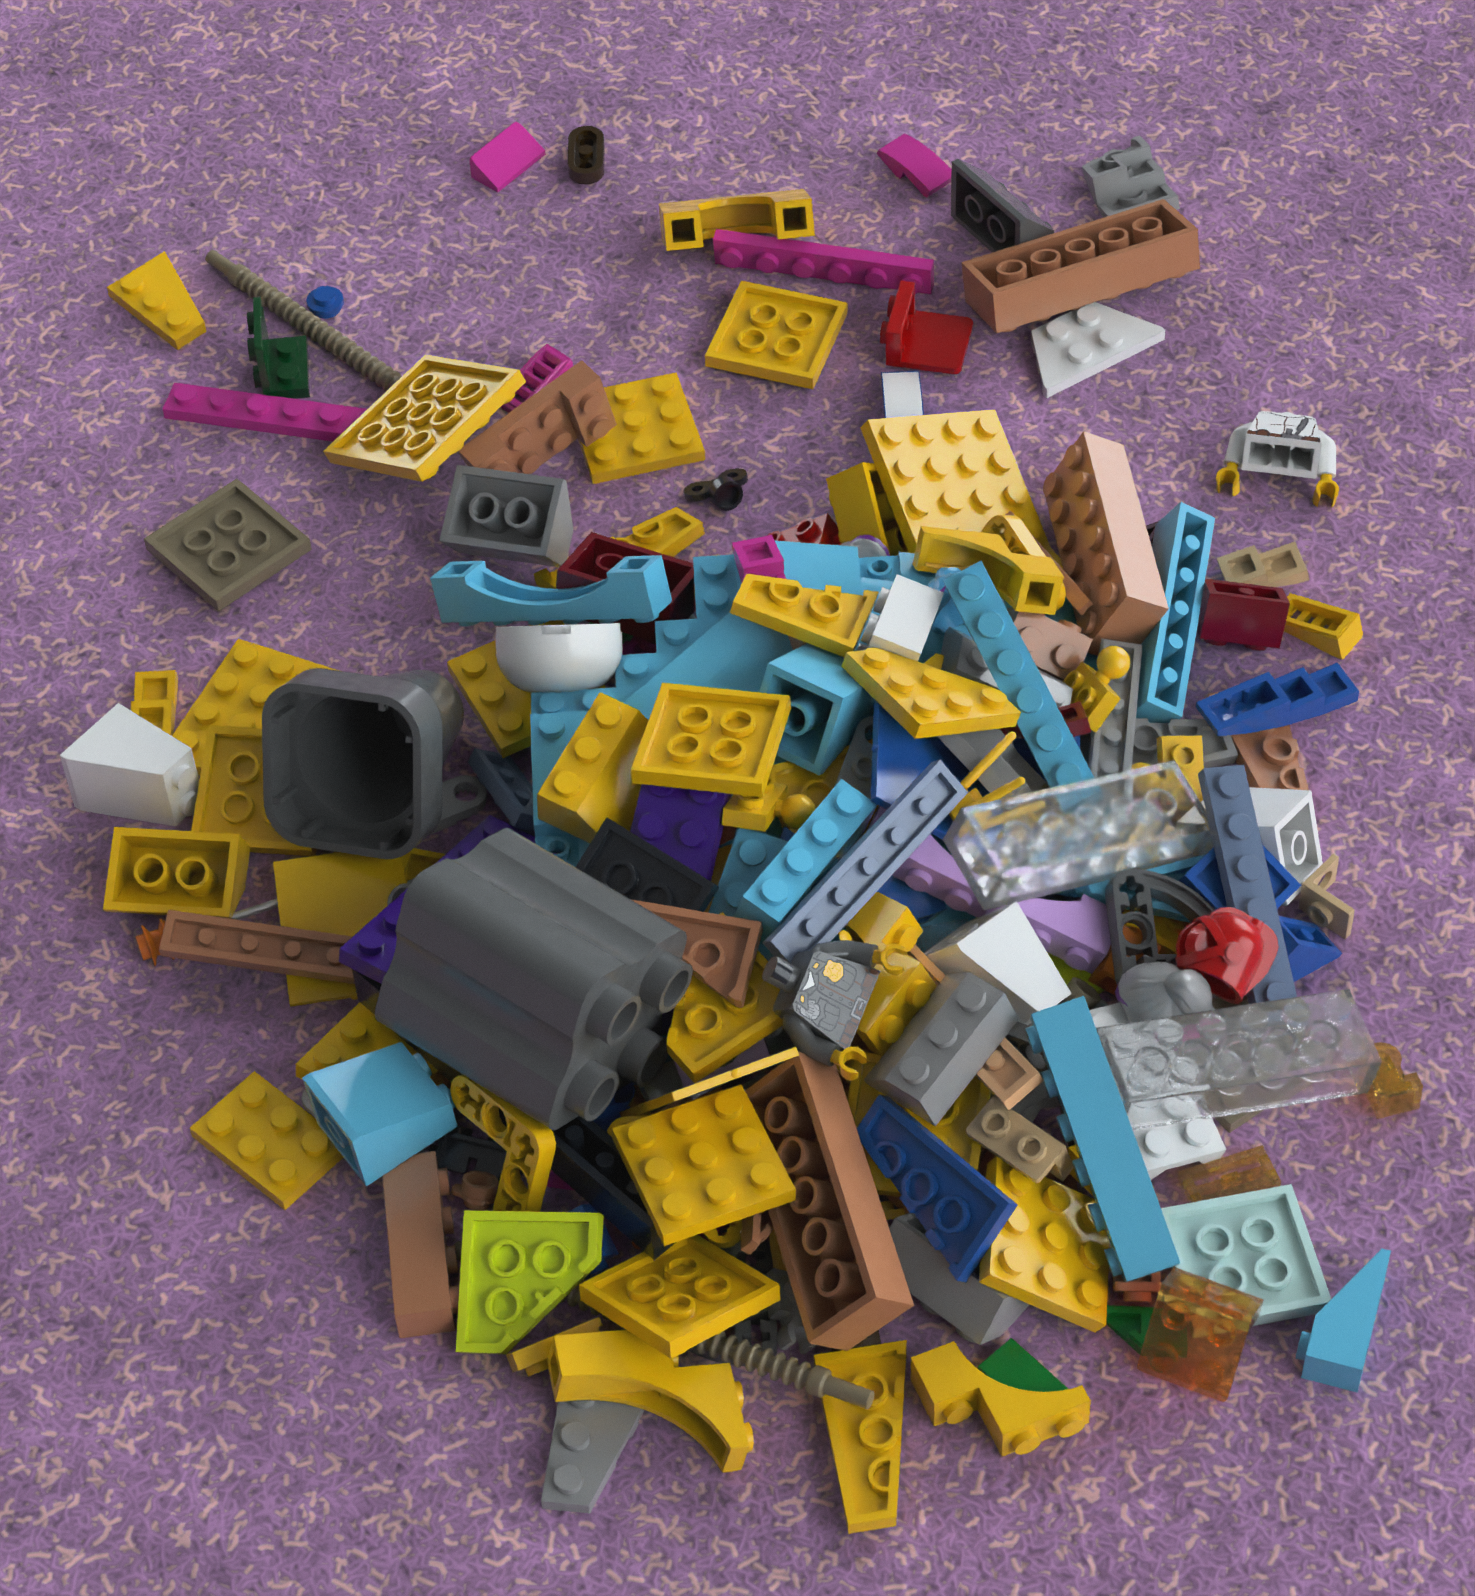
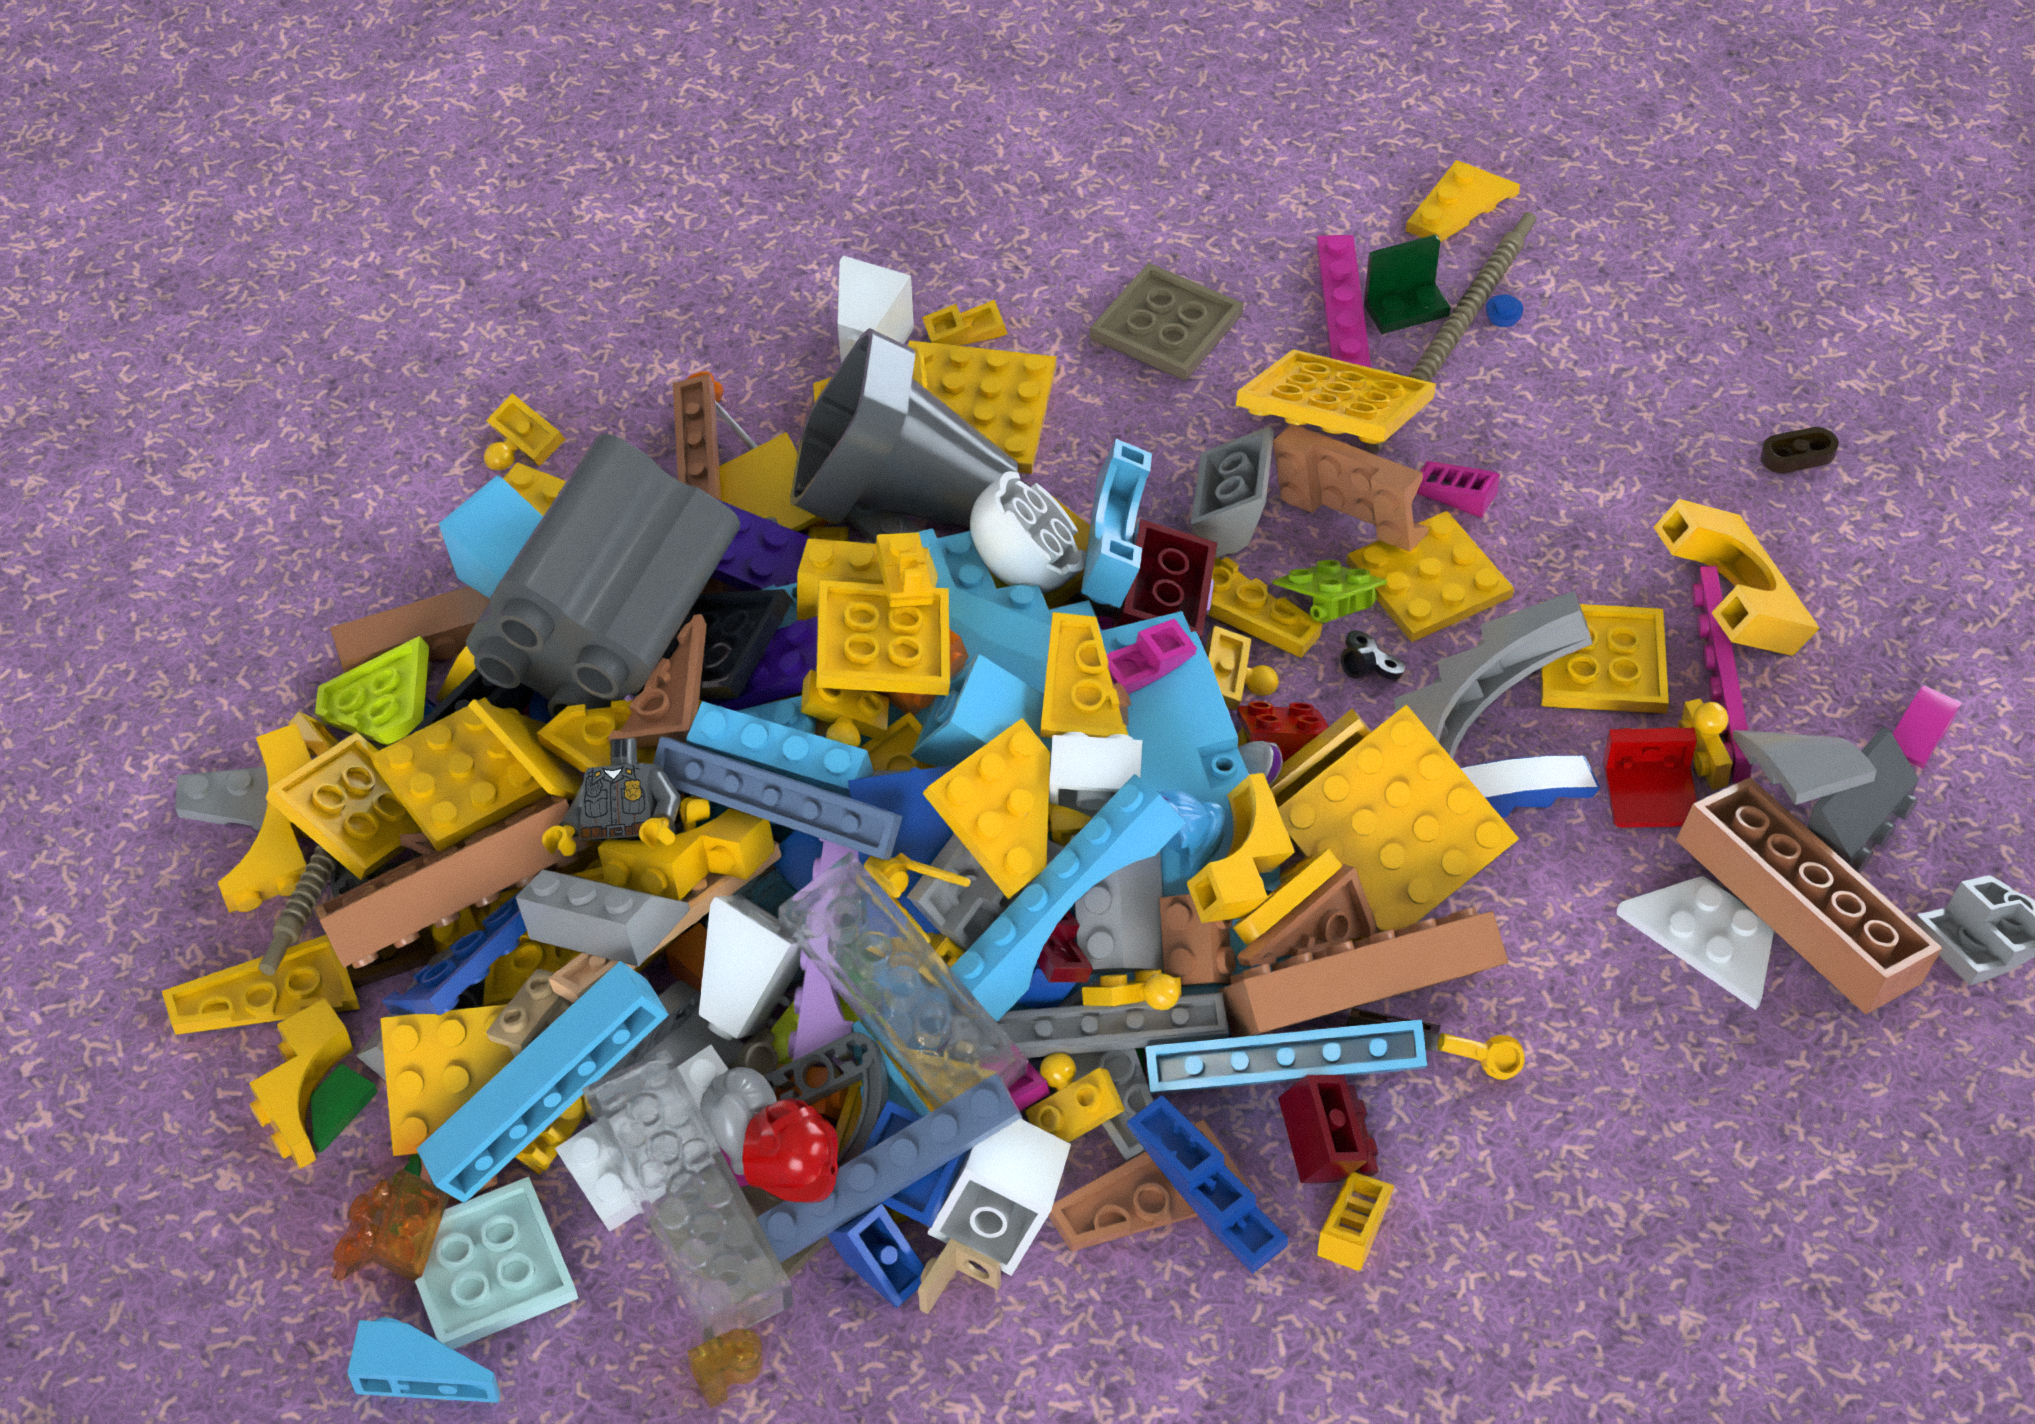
camera: 75 degrees right, 0 degrees up
(146, 1115) = (522, 431): none -> yellow plate
(175, 872) = (767, 379): yellow slope -> none
(505, 157) = (1767, 390): dark pink slope -> none
(633, 487) = (1334, 588): none -> lime hinge
(636, 704) = (904, 569): none -> yellow plate
(765, 382) = (1508, 653): none -> light grey arch
(897, 267) = (1710, 753): none -> yellow plate
(965, 214) = (1806, 763): none -> light grey slope
(1183, 491) = (1499, 1056): none -> yellow plate
(1231, 1180) = (603, 1270): clear yellow tile -> none
(1271, 568) = (1420, 1153): tan slope -> none
(1281, 446) = (1601, 1139): white torso -> none

